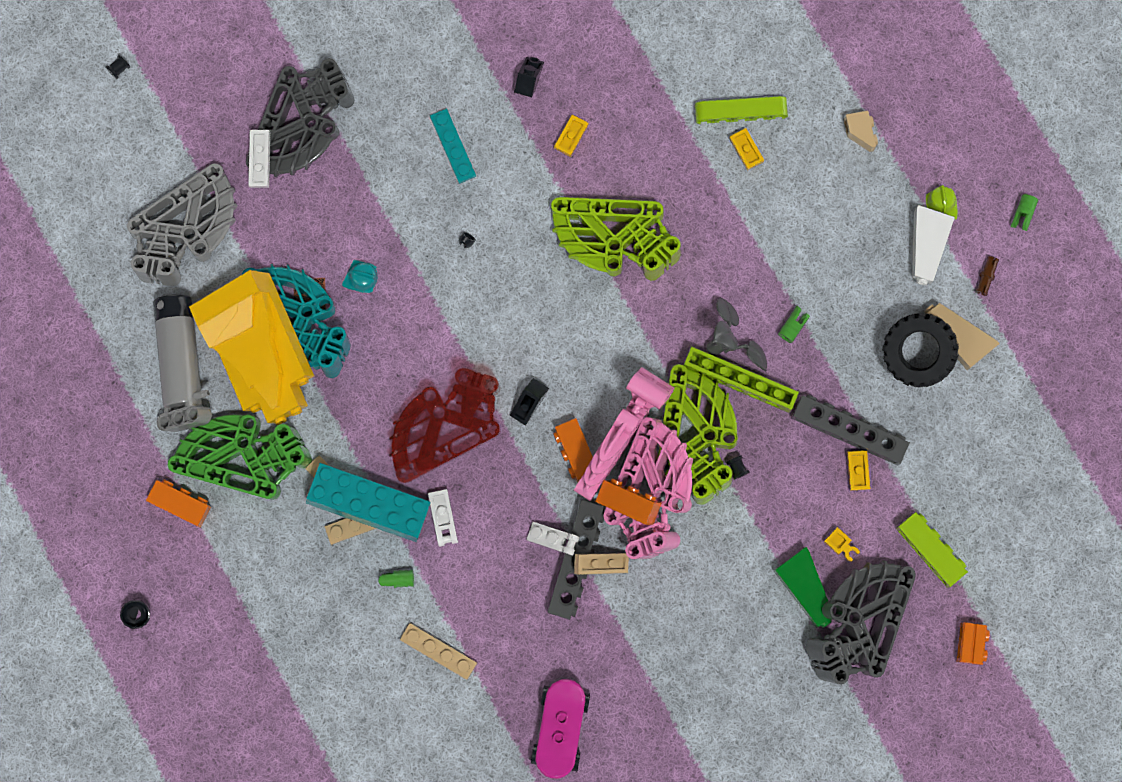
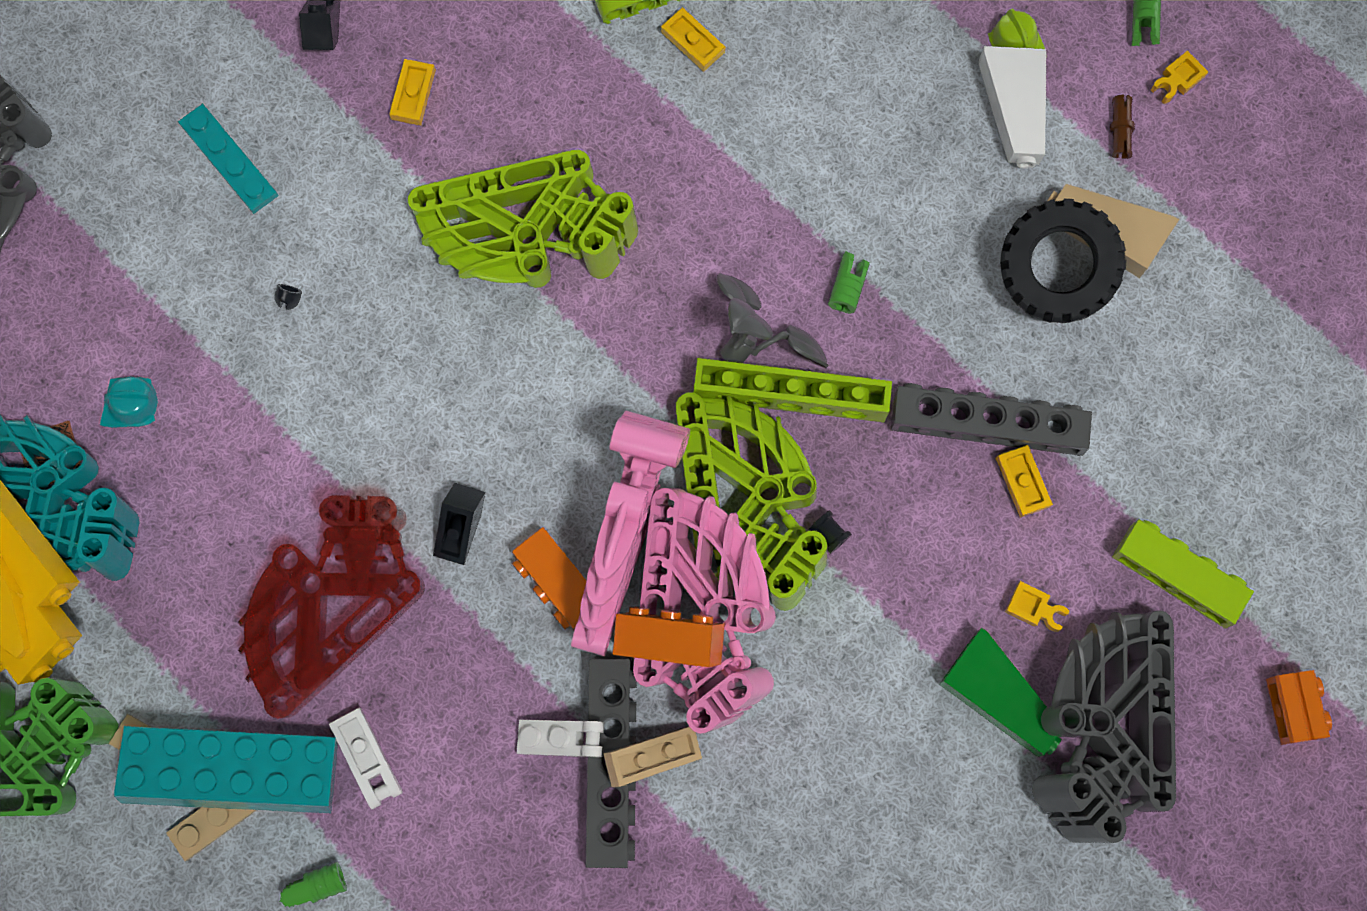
camera: 20 degrees left, 5 degrees down
(1034, 254) = (1180, 76): none -> yellow plate

